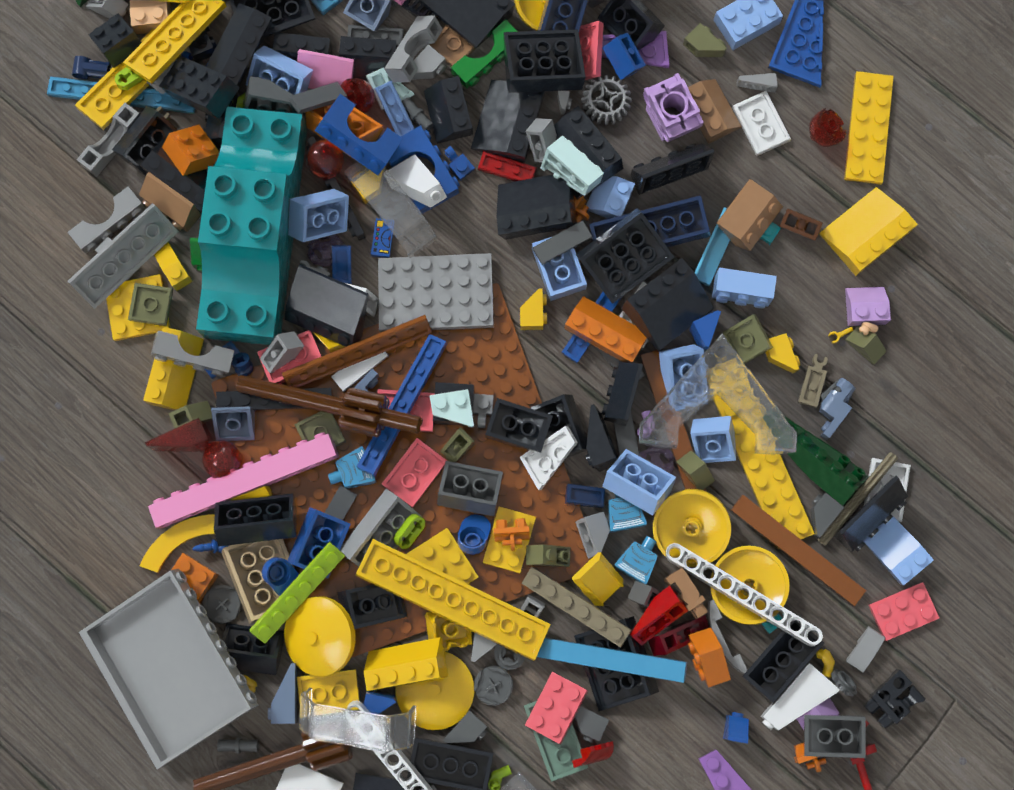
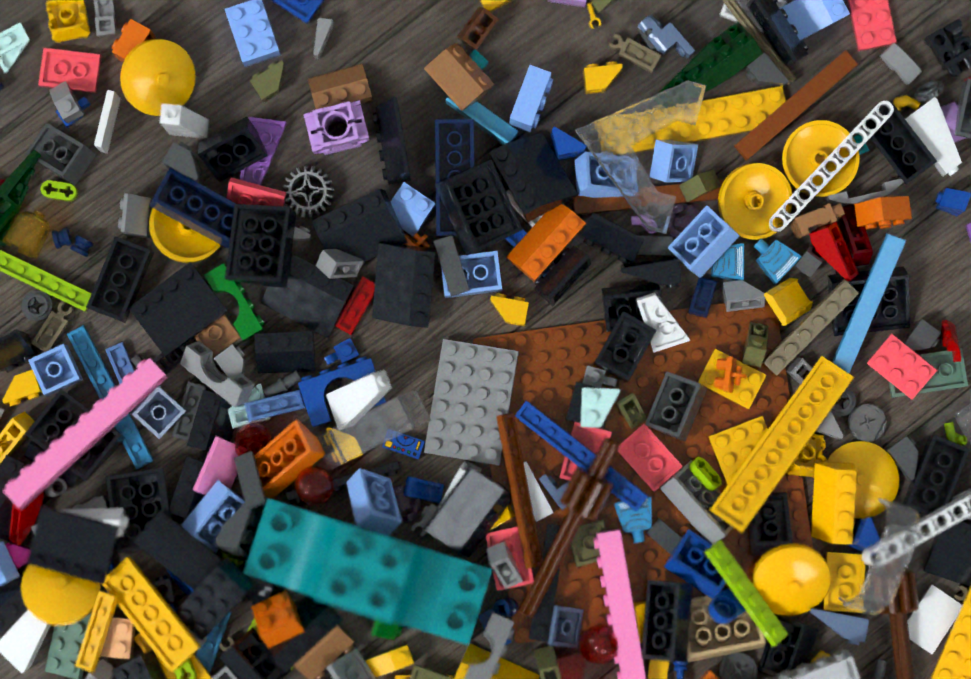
camera: 80 degrees left, 5 degrees up
(336, 130) = (295, 466): blue arch -> none
(473, 534) = (720, 411): blue cap -> none
(571, 165) = (378, 239): light aqua wedge -> none
(576, 352) = (562, 275): none -> black slope
(624, 56) = (270, 164): blue brick -> none
(748, 338) = (581, 106): olive tile -> none
(761, 123) = (363, 43): white tile -> none

